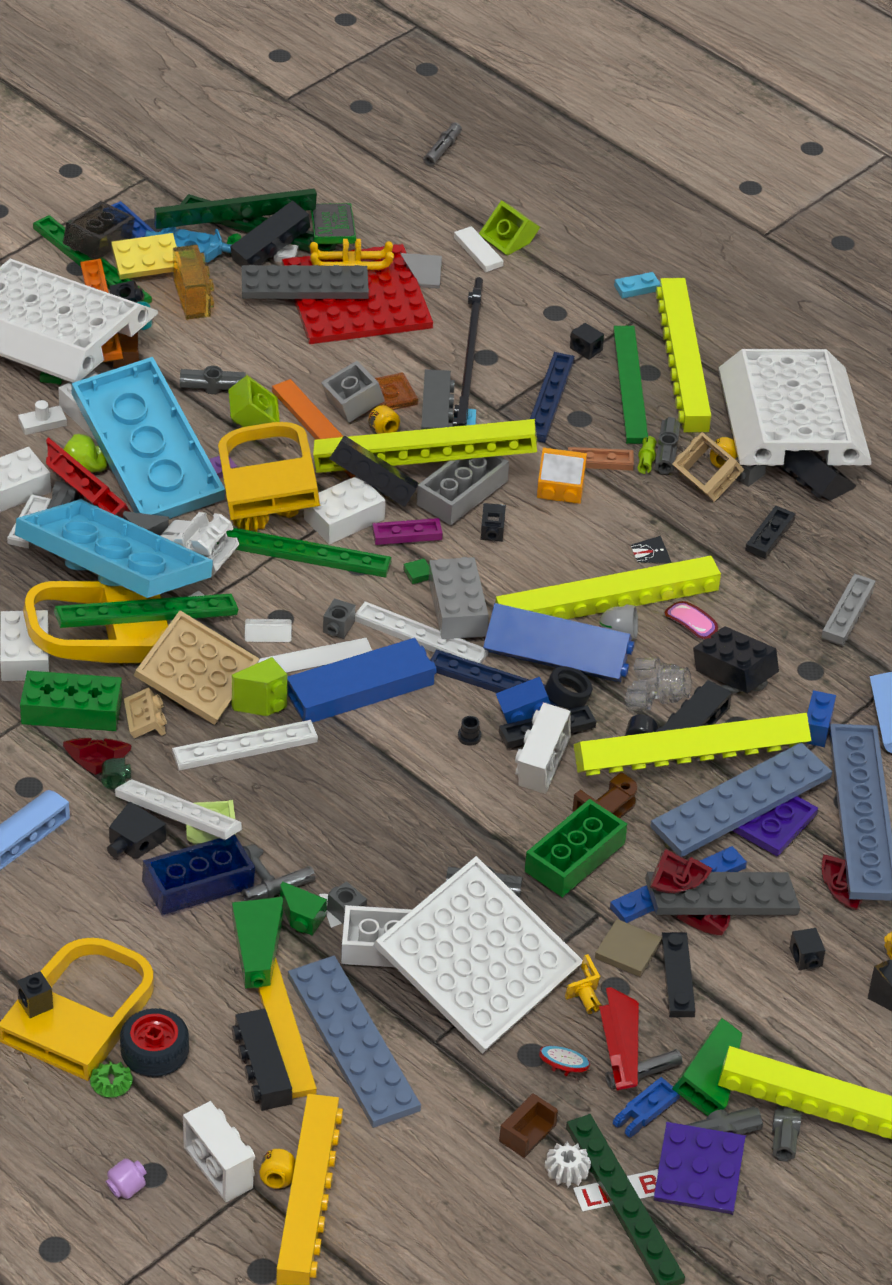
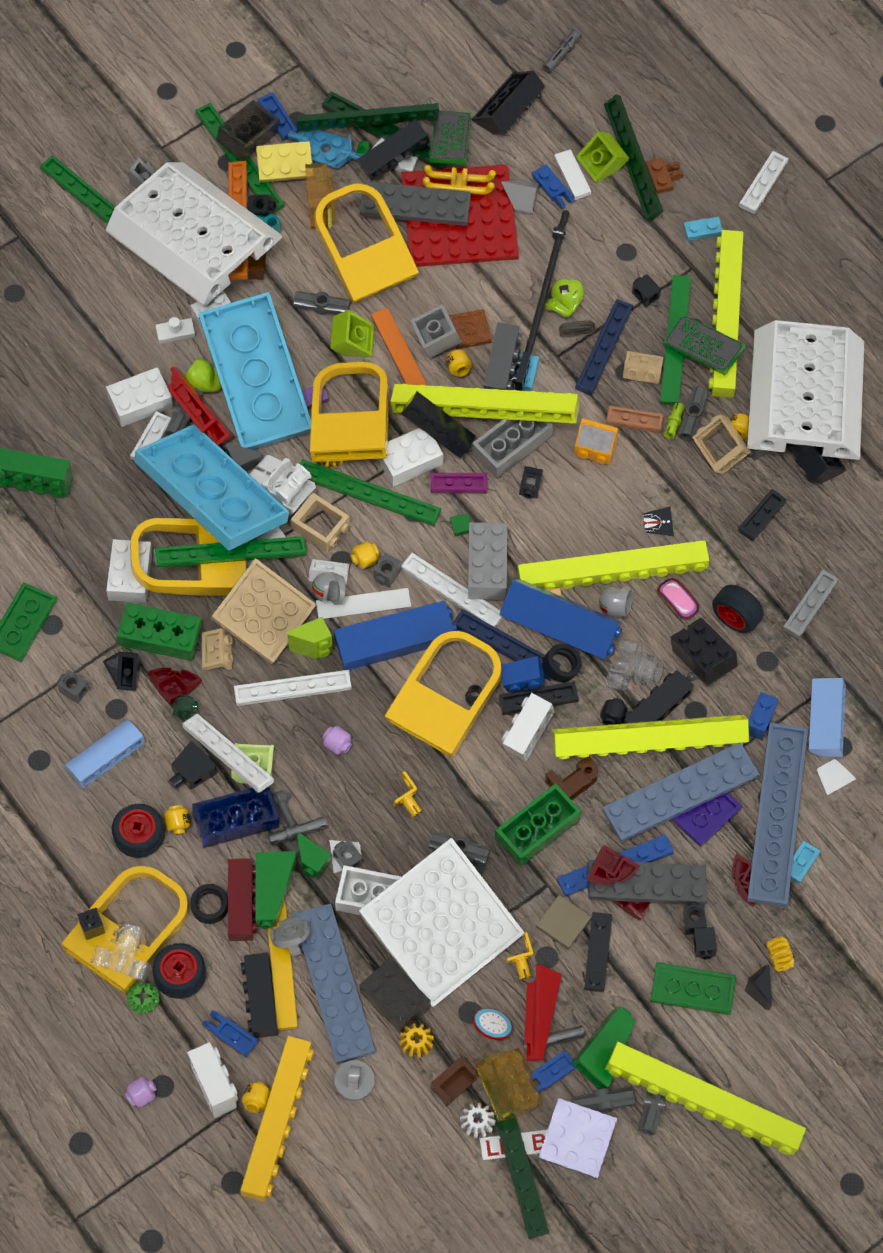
camera: 10 degrees right, 20 degrees up
(32, 741) = (124, 669): none -> black slope
(77, 901) = (138, 830): none -> wheel
(85, 1026) = (122, 960): none -> clear beam
(125, 886) = (177, 819): none -> yellow head
(184, 985) = (209, 889): none -> black tyre
(220, 962) = (241, 900): none -> dark red brick
(233, 1104) = (231, 1034): none -> blue hinge
(246, 595) = (306, 511): none -> tan window
(263, 341) = (375, 266): none -> yellow window
(268, 638) = (329, 587): none -> light grey helmet
(290, 985) = (290, 935): none -> light grey tile
(309, 606) = (365, 555): none -> yellow head
(310, 788) = (337, 740): none -> lavender head
(394, 190) = (509, 102): none -> black slope
(400, 1140) = (354, 1080): none -> light grey tile
(409, 836) = (407, 799): none -> yellow bracket
(425, 752) = (431, 715): none -> yellow window
(435, 1042) = (395, 996): none -> clear smoke brick
(458, 260) = (552, 186): none -> blue hinge
(471, 1087) = (409, 1042): none -> yellow gear
(496, 350) = (565, 297): none -> lime piece
(515, 380) = (577, 329): none -> clear smoke tile
(549, 233) = (636, 164): none -> dark green plate
(581, 244) = (659, 174): none -> dark orange hinge
(599, 410) = (643, 367): none -> tan bracket
(600, 1114) = (508, 1084): none -> clear yellow brick
(666, 378) = (704, 344): none -> tile
(695, 239) = (763, 182): none -> white plate
(766, 613) = (738, 608): none -> black wheel
(784, 922) = (693, 909): none -> black brick
(804, 1000) = (693, 988): none -> green tile

